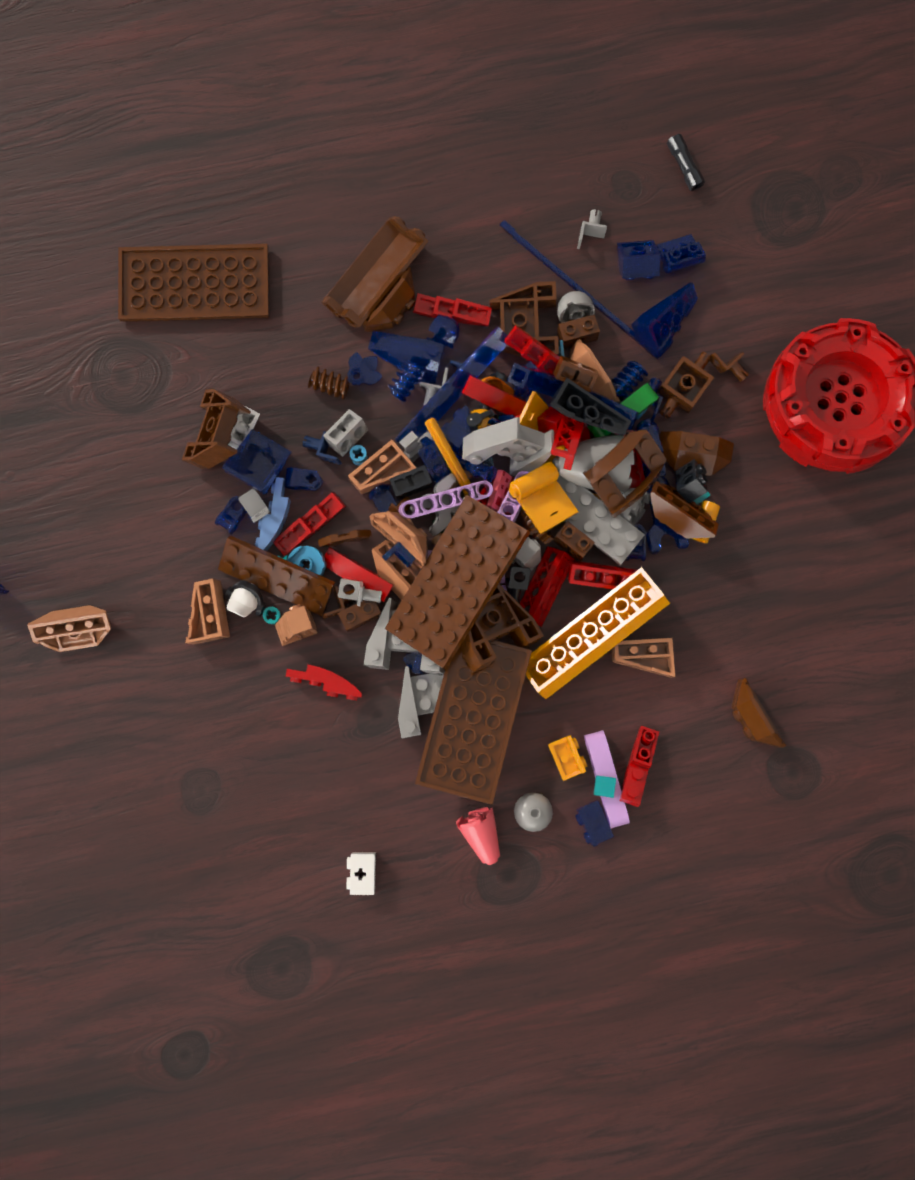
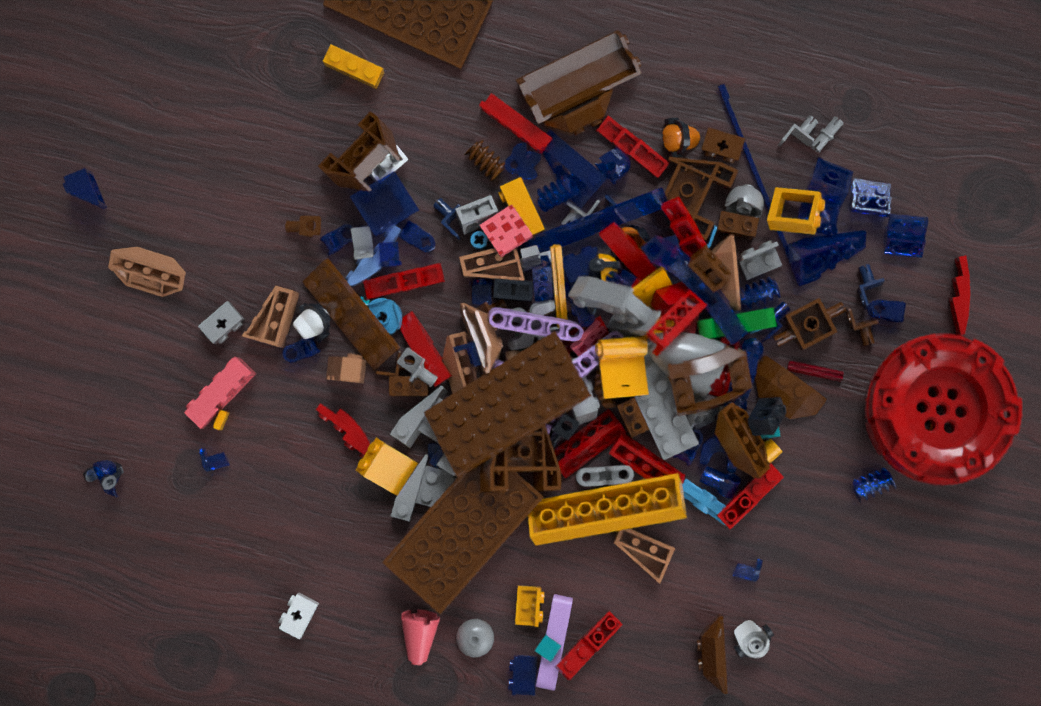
camera: 30 degrees right, 5 degrees up
(122, 832) = (107, 473): none -> cap
(156, 650) = (225, 313): none -> light grey brick
(171, 359) = (353, 66): none -> light orange brick
(190, 705) = (220, 392): none -> coral wedge
(196, 517) = (304, 226): none -> reddish brown bracket
(204, 729) = (221, 420): none -> light orange tile
(215, 771) = (213, 462): none -> clear blue tile
(247, 629) = (302, 349): none -> clear blue piece
(272, 609) = (333, 342): teal bush -> none
(284, 505) = (389, 255): none -> clear blue tile
(339, 339) = (515, 123): none -> red fence
(352, 536) = (429, 310): reddish brown tile -> none
(375, 695) = (386, 466): none -> light orange brick
(378, 432) = (506, 230): none -> coral tile
(382, 409) = (517, 195): none -> light orange brick
(488, 281) = (679, 137): none -> cap
(539, 264) = (734, 143): none -> reddish brown brick
(575, 605) = (604, 475): none -> light grey piece
(584, 407) = (698, 305): black wedge -> none
(613, 351) = (759, 261): none -> light grey bracket
(614, 219) = (826, 134): none -> light grey pin
(629, 303) = (779, 223): none -> light orange window
(645, 291) = (828, 217): none -> clear blue bracket
(678, 585) = (702, 499): none -> dark azure piece
(685, 560) = (725, 483): none -> clear blue piece
(691, 173) = (922, 99): black axle -> none
(711, 424) = (815, 371): none -> dark red axle
(712, 561) = (749, 497): none -> red slope
(717, 326) = (868, 283): none -> dark blue bracket
(727, 269) = (905, 235): none -> clear blue brick
(745, 341) = (890, 310): none -> clear blue piece
(745, 628) = (748, 572): none -> clear blue tile
(782, 686) = (752, 640): none -> white cap
(804, 302) = (961, 303): none -> red slope
(812, 494) = (873, 484): none -> clear blue piece

